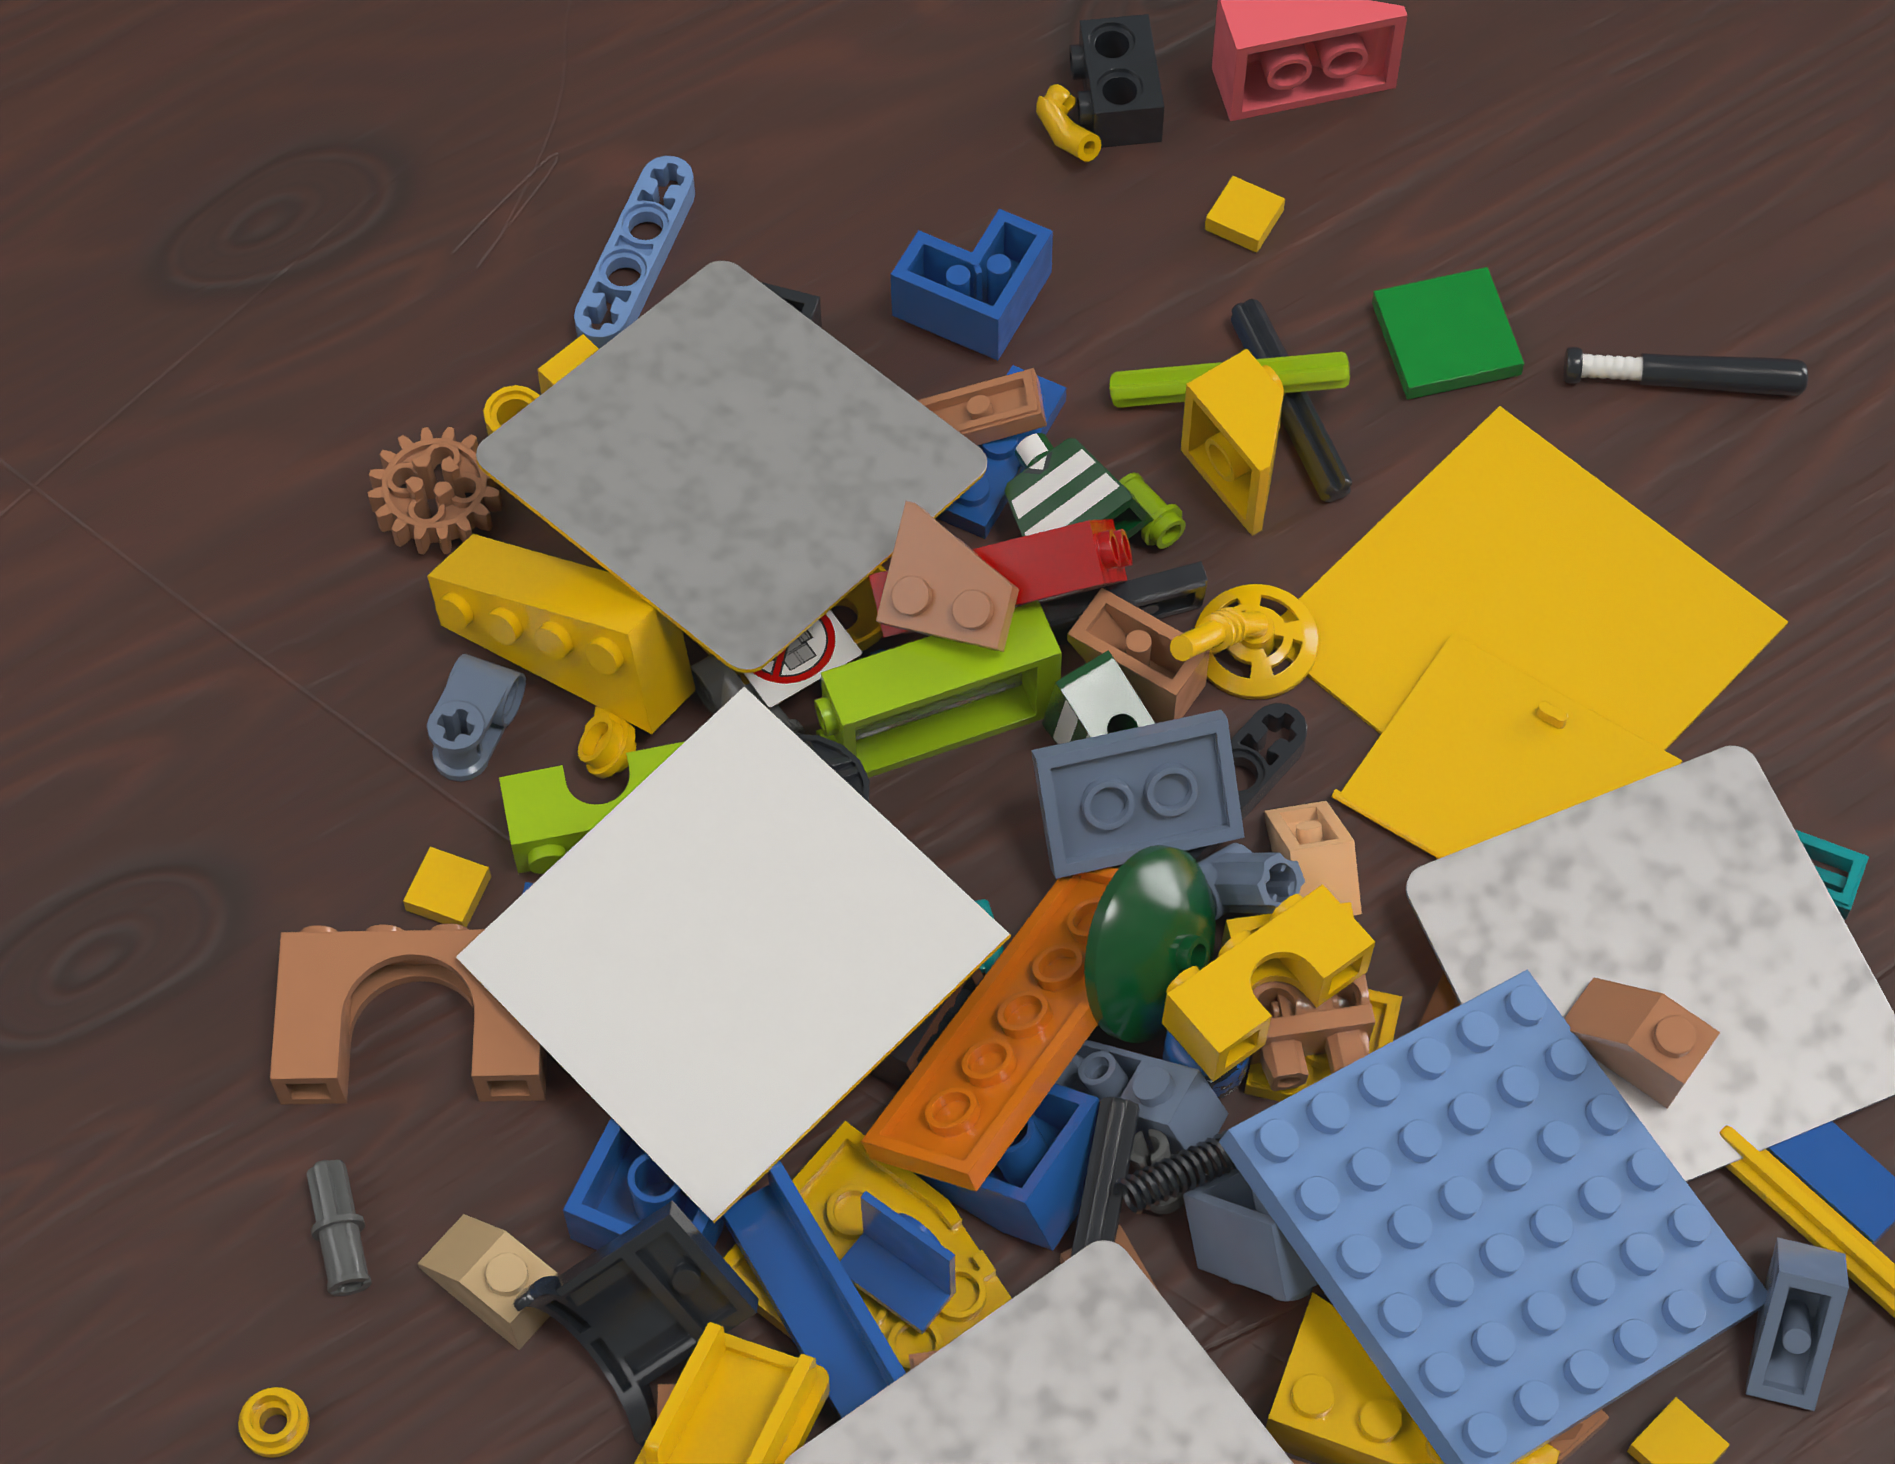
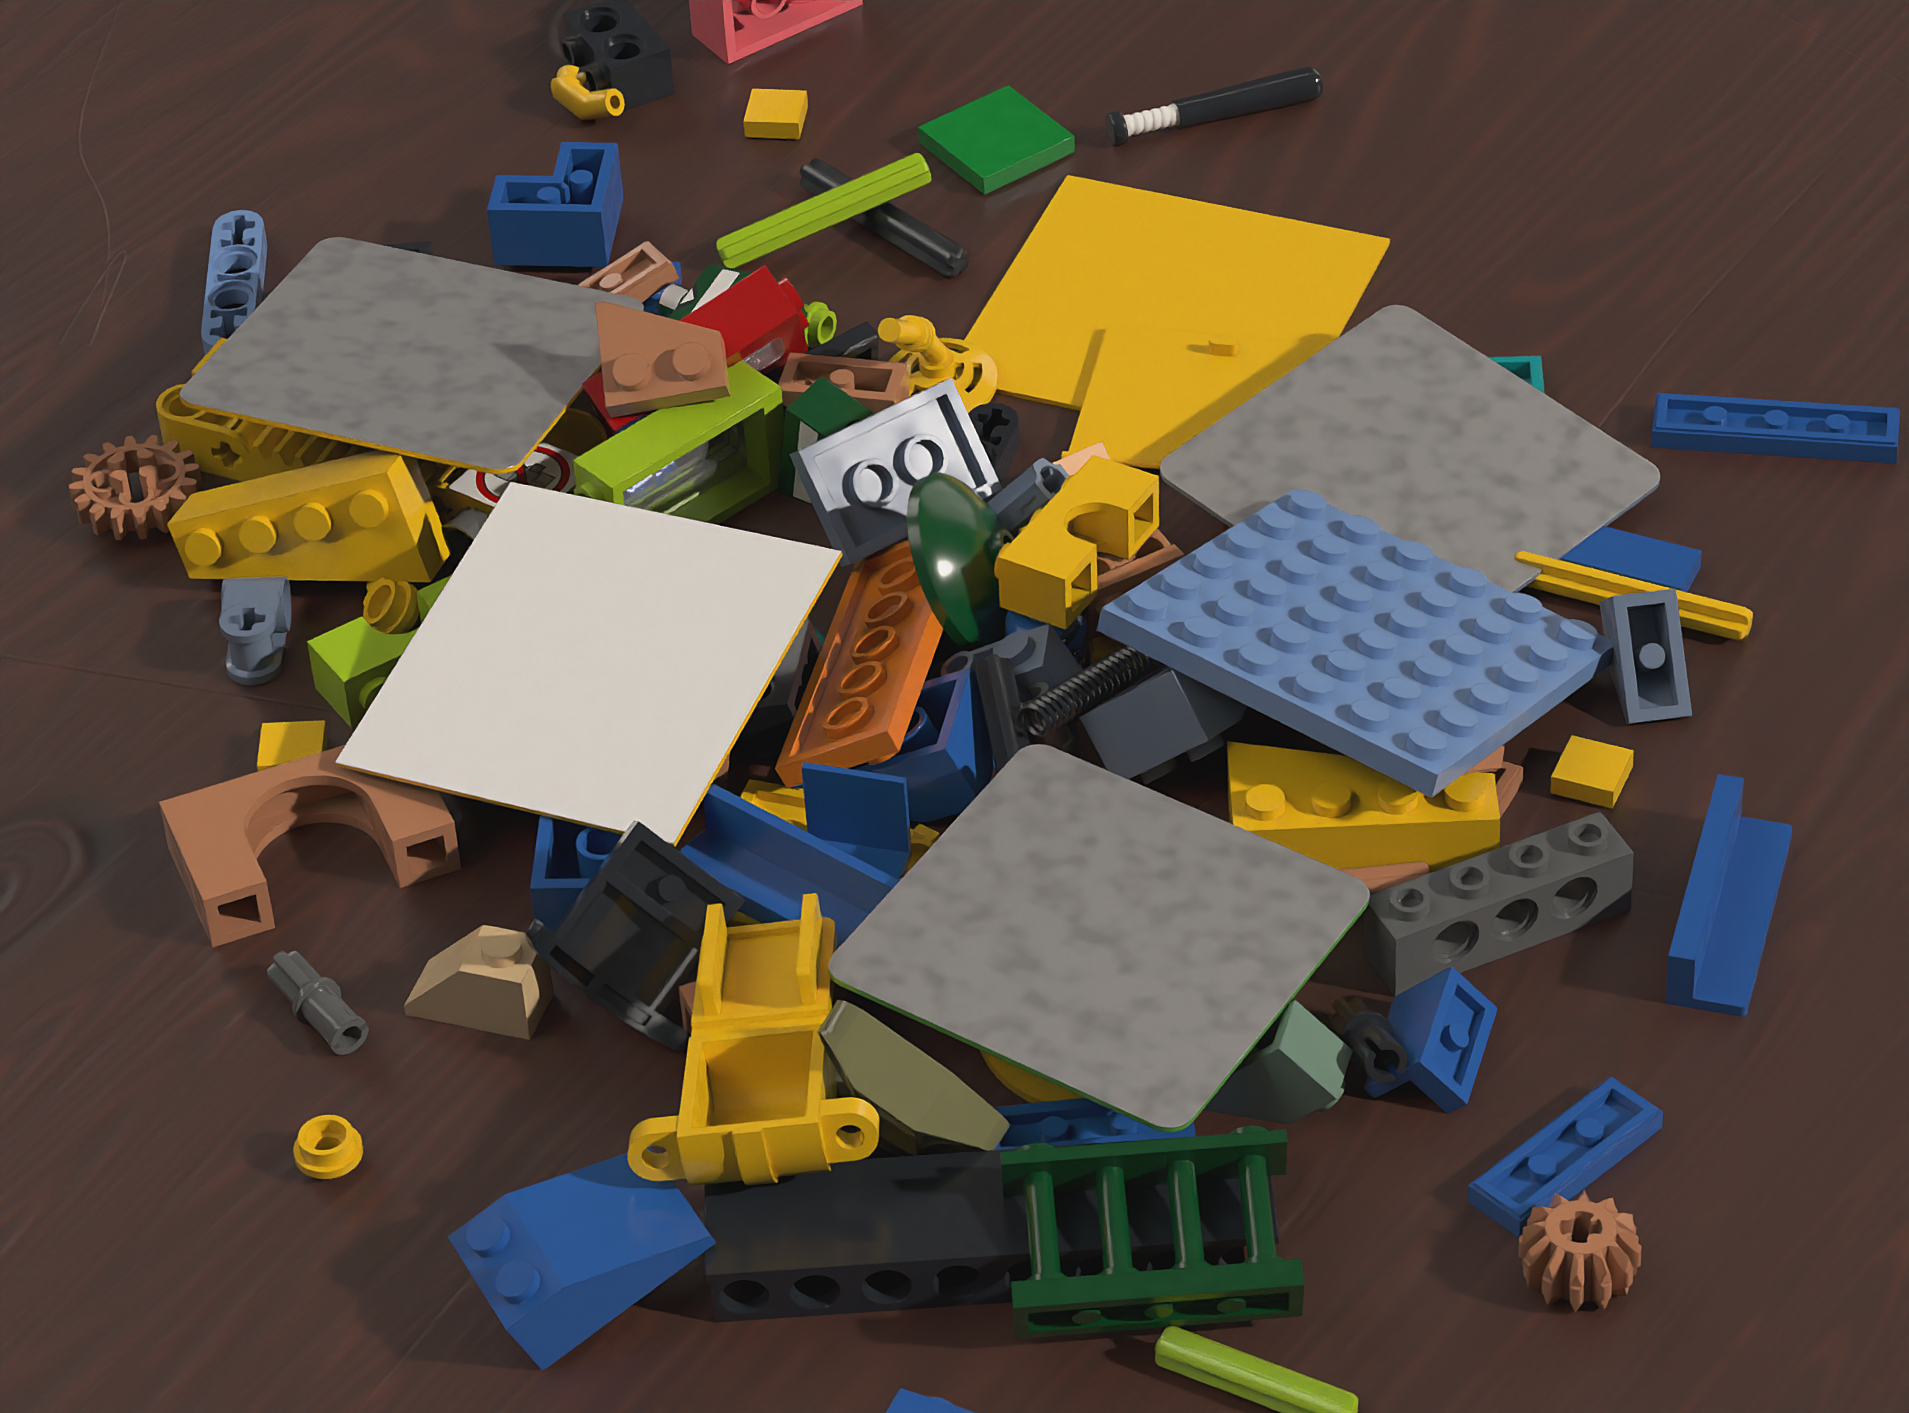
camera: 20 degrees left, 20 degrees down
(1233, 433) = (850, 235): yellow slope -> none
(1641, 1036) = (1421, 498): nougat slope -> none

